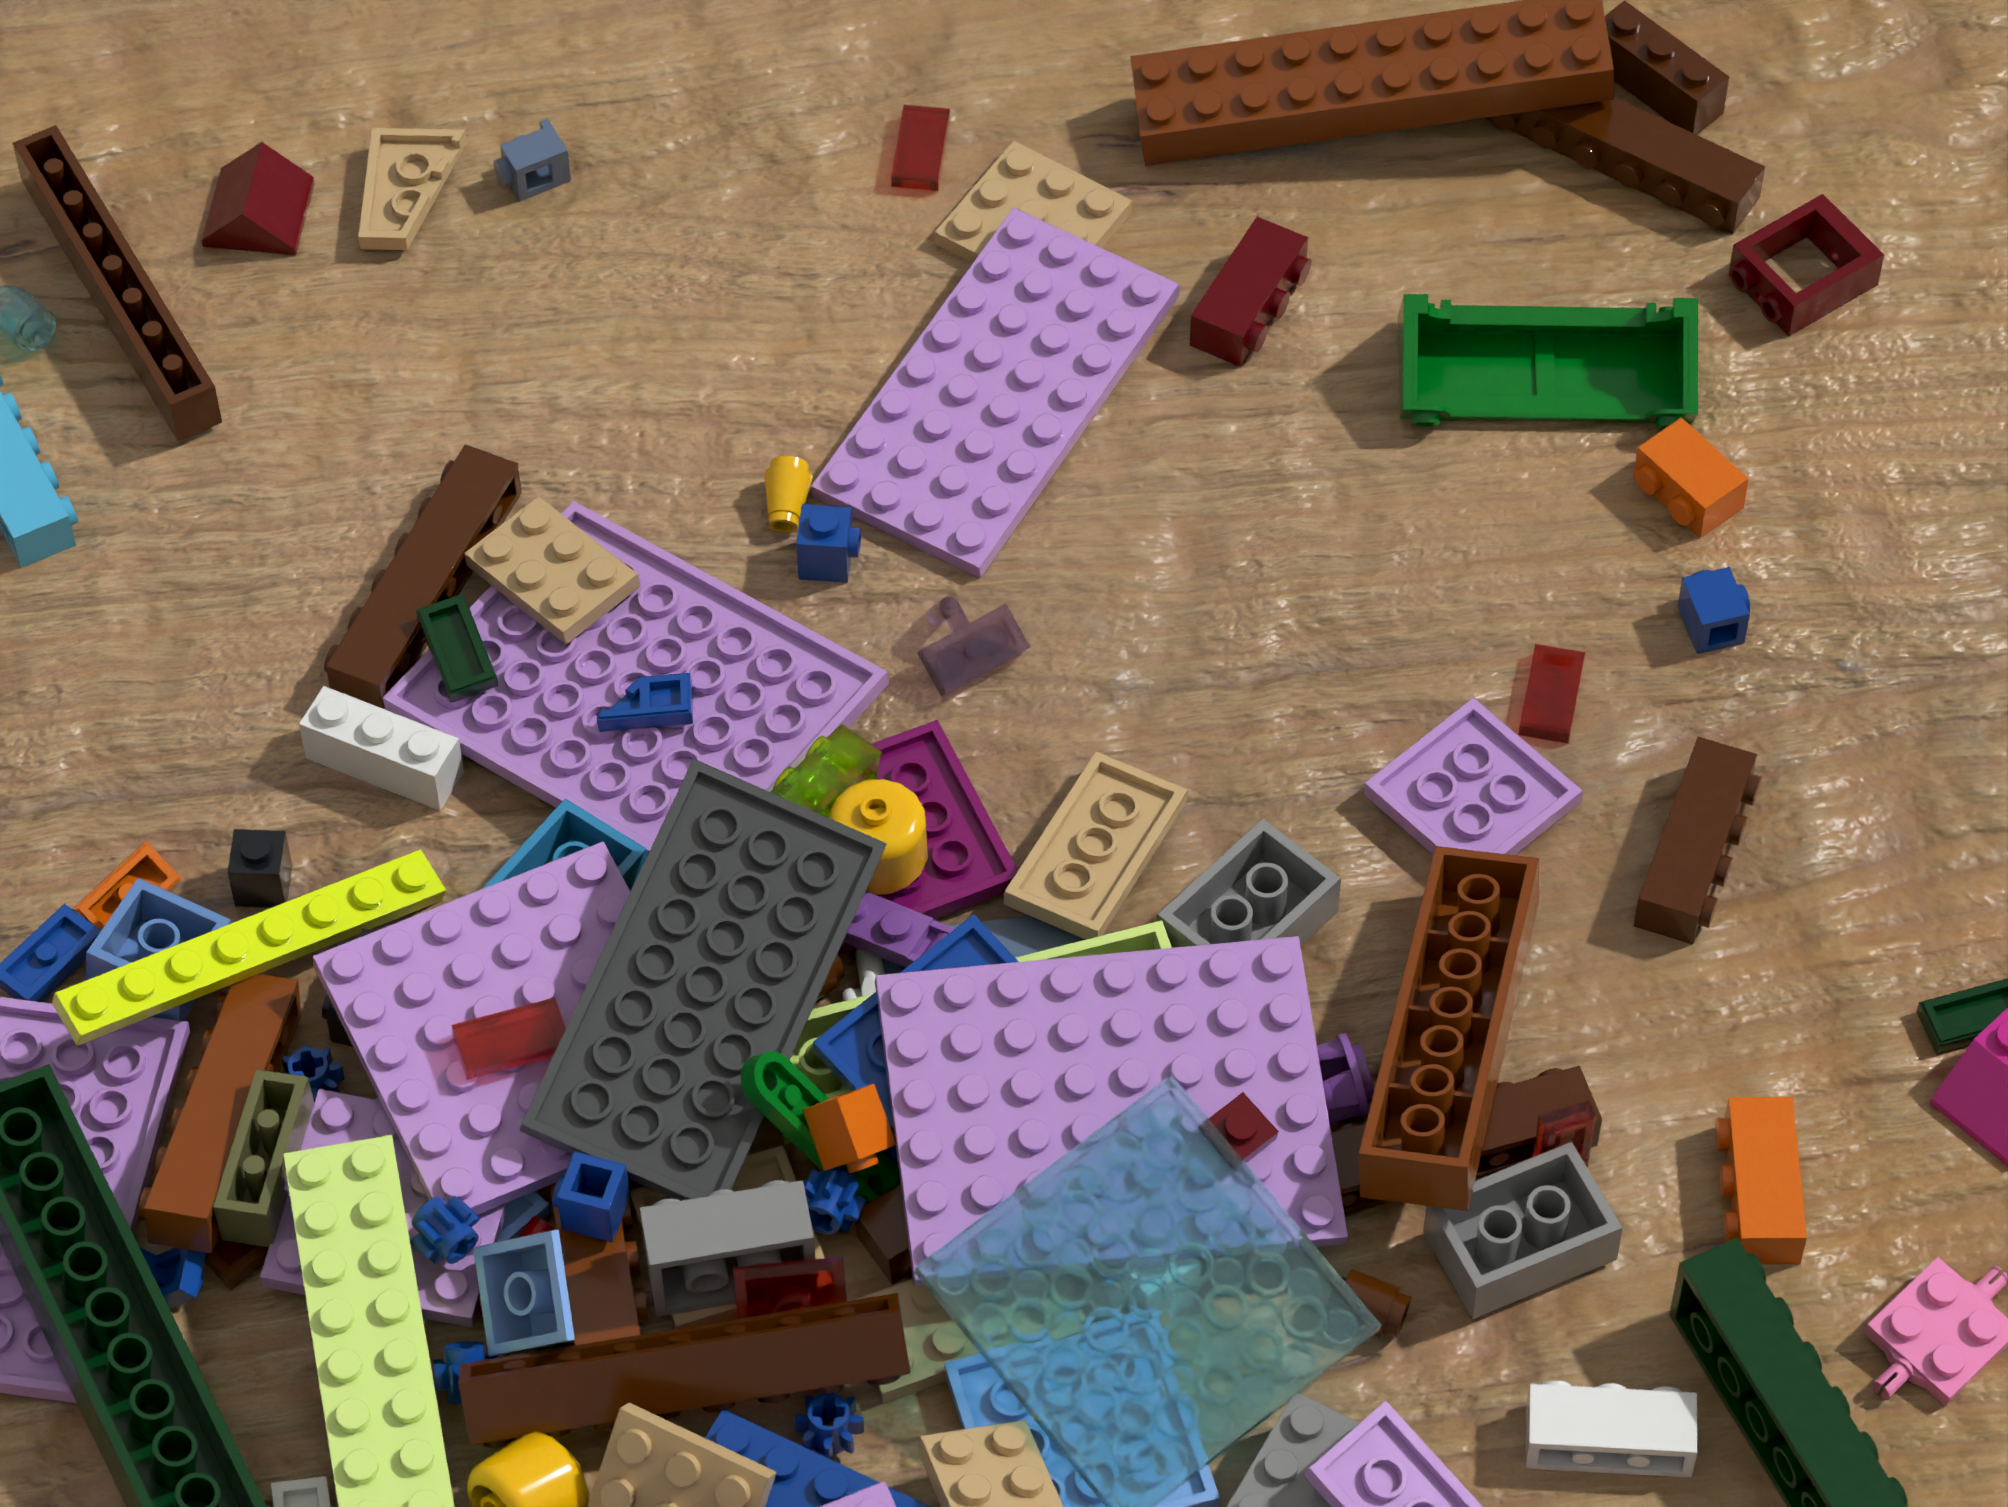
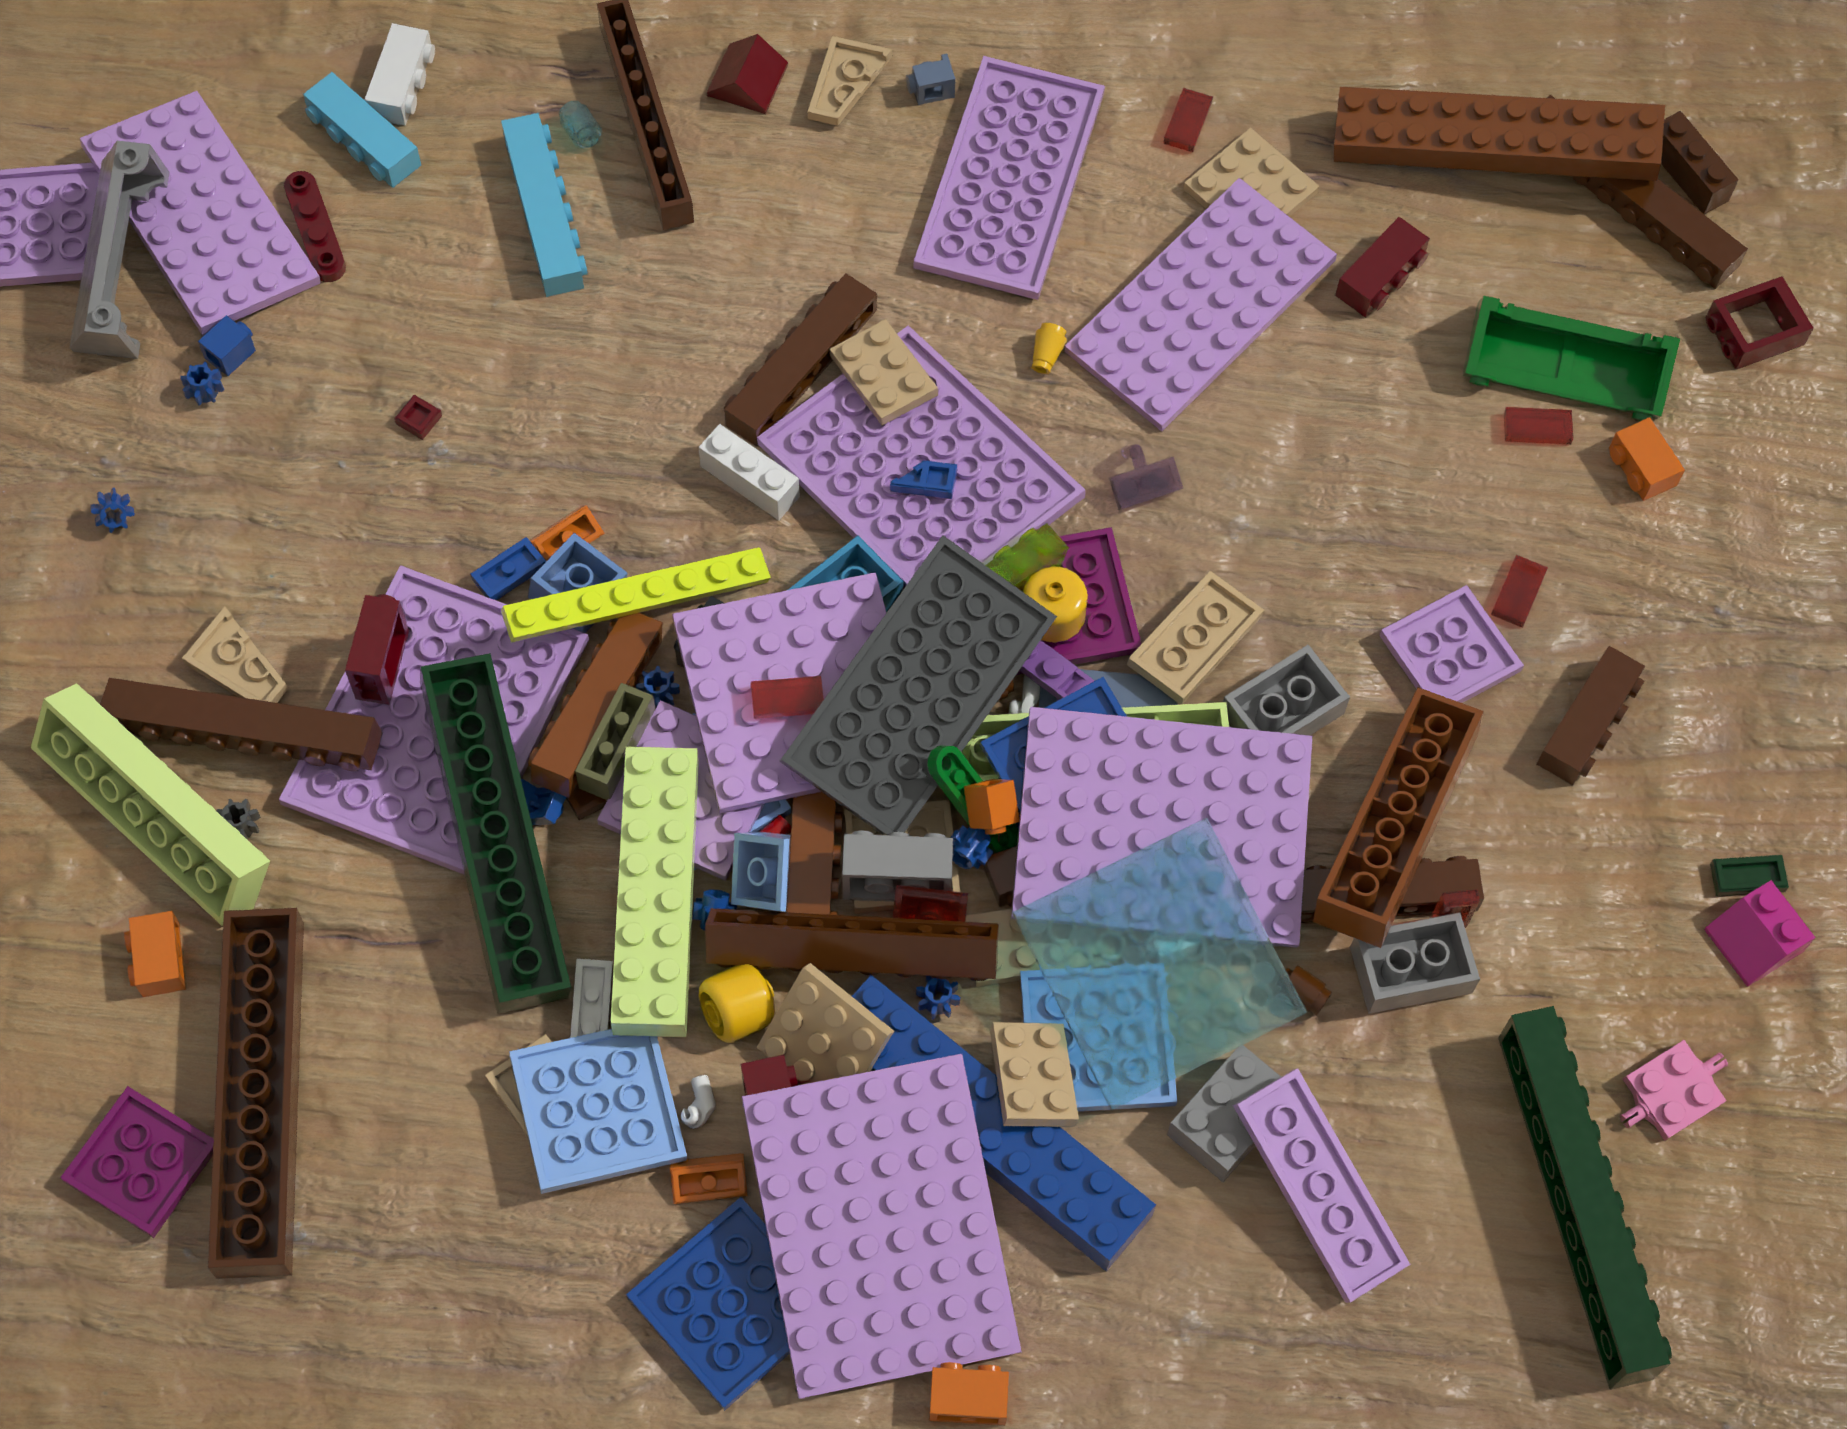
camera: 10 degrees right, 10 degrees up
(259, 868) = (654, 538): black brick -> none
(444, 1230) = (718, 817): blue gear -> none
(457, 648) = (811, 414): dark green tile -> none
(592, 1196) = (817, 815): blue brick -> none
(677, 274) = (1009, 178): none -> lavender plate
(826, 543) = (1066, 388): blue brick -> none
(1244, 1127) = (1246, 860): dark red plate -> none
(1345, 1079) = (1323, 832): medium lavender piece -> none
(1525, 464) = (1538, 425): none -> clear red tile
(1611, 1429) = (1442, 1110): white brick -> none
(1714, 609) = (1640, 555): blue brick -> none
(1762, 1178) = (1580, 961): orange brick -> none

